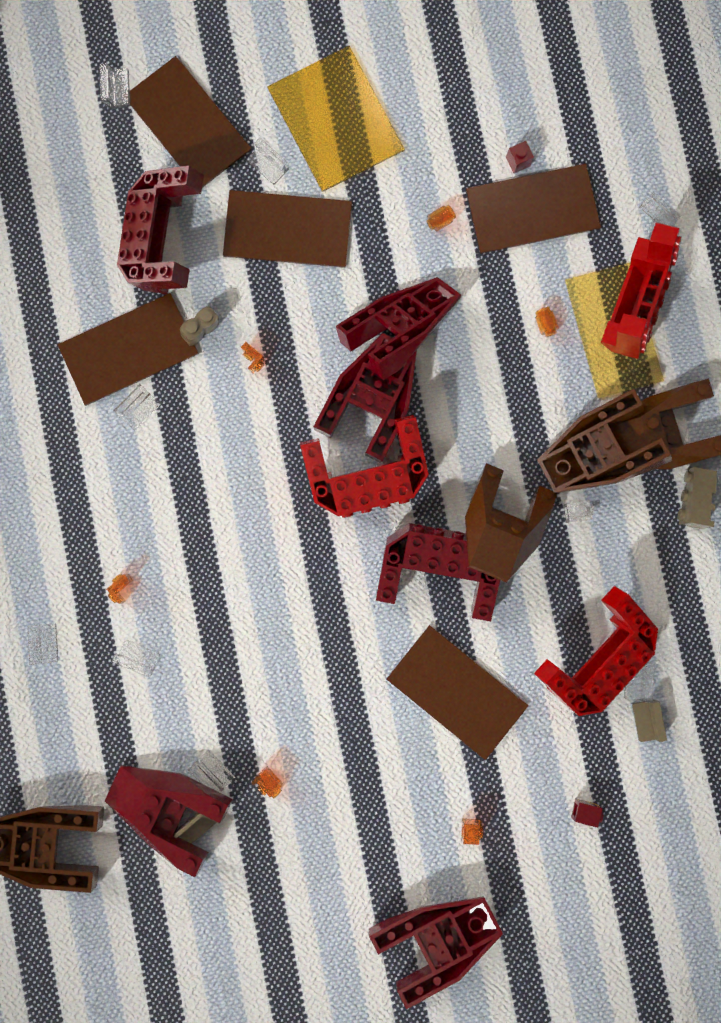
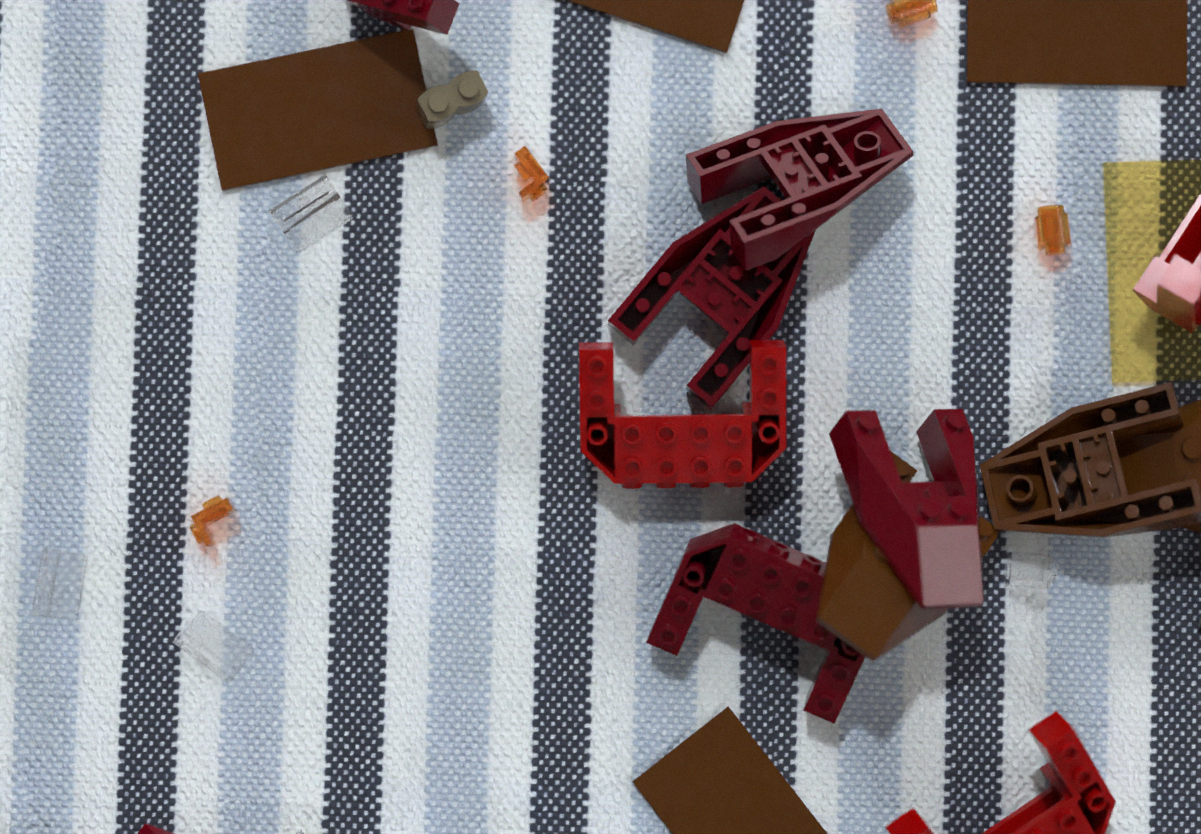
camera: 10 degrees right, 0 degrees up
(513, 500) = (920, 527): none -> dark red wedge

